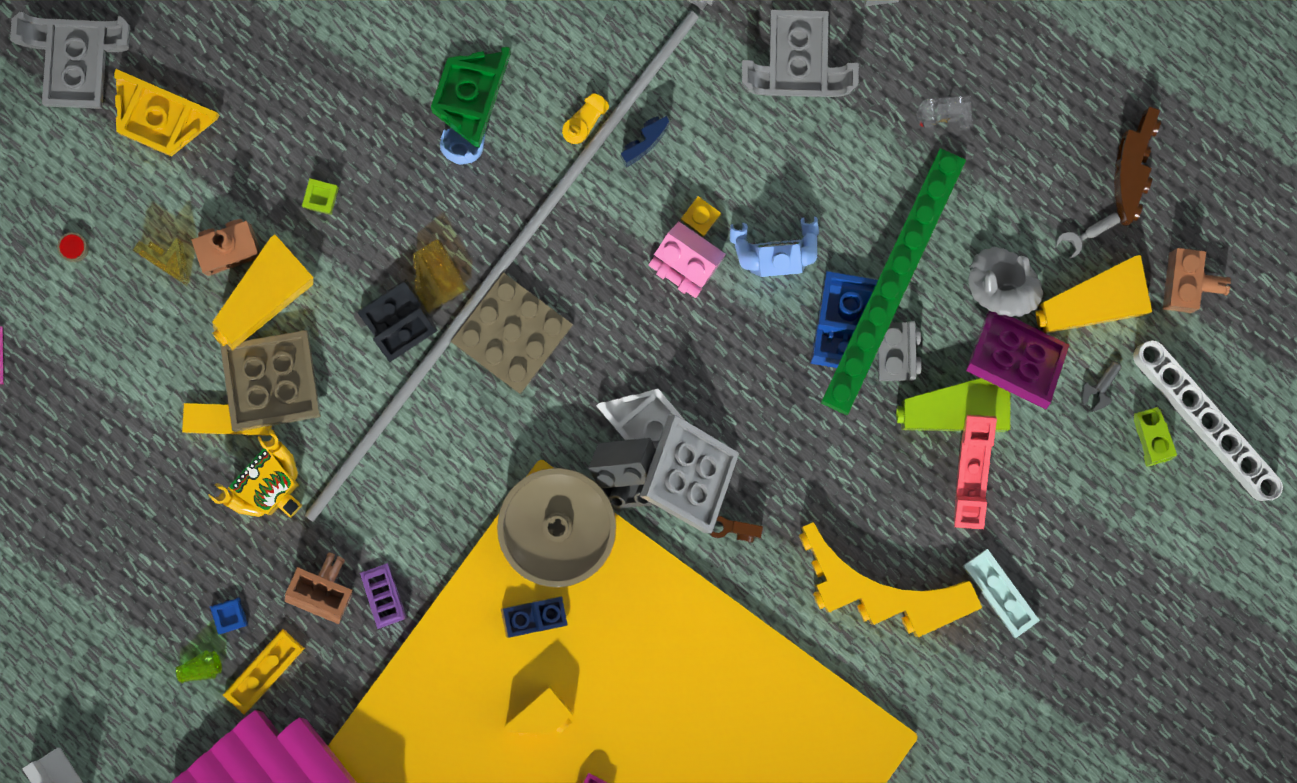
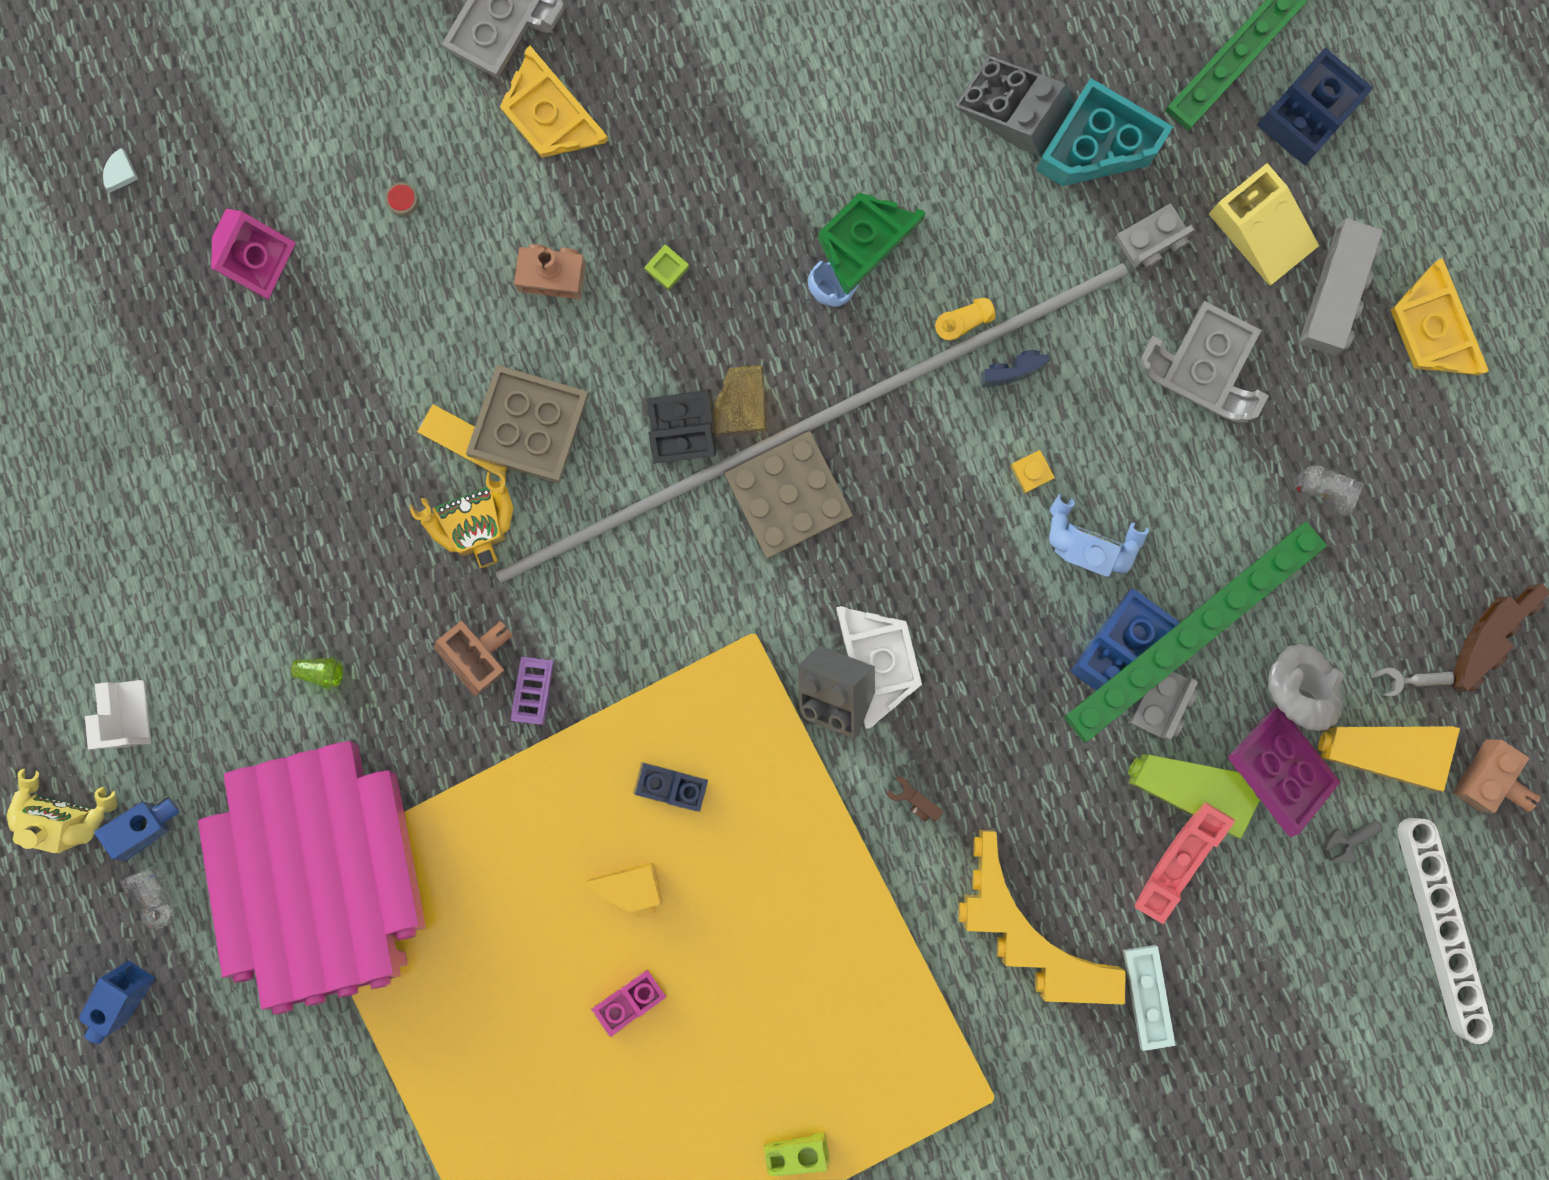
camera: 30 degrees right, 0 degrees up
(172, 262) = (490, 260): clear yellow slope -> none
(228, 616) = (372, 634): blue tile -> none
(262, 293) = (561, 334): yellow slope -> none
(263, 671) = (379, 706): yellow tile -> none
(556, 527) = (737, 709): dark tan dish -> none
(689, 256) = (1002, 505): bright pink brick -> none
(689, 474) = (896, 722): light grey plate -> none
(1154, 437) = (1382, 918): lime leg -> none

